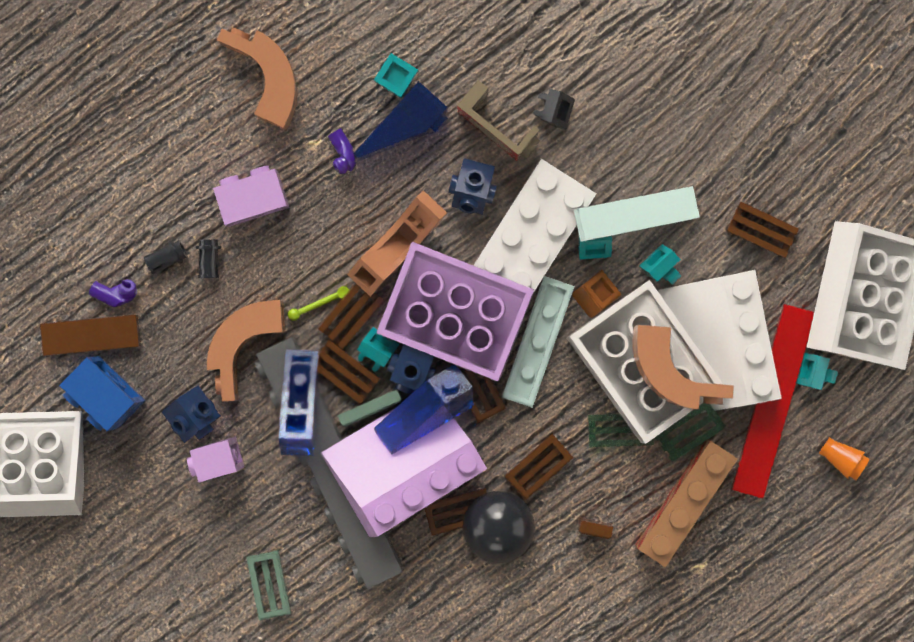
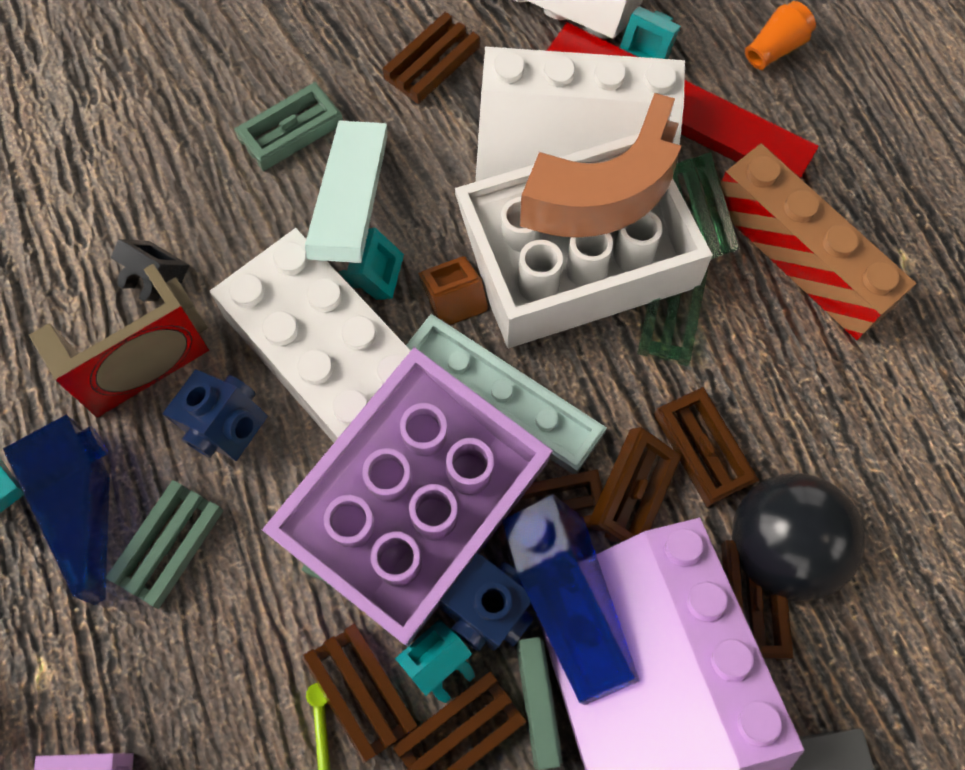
camera: 75 degrees left, 20 degrees down
(345, 151) = (82, 619): dark purple arm -> none
(370, 176) = (148, 532): none -> sand green tile
(392, 248) = (267, 574): nougat arch -> none
(501, 427) = (628, 484): none -> reddish brown tile
(595, 528) = (827, 382): reddish brown tile -> none
(661, 265) = (435, 183): teal tile -> none
(704, 171) = (293, 131): none -> sand green tile

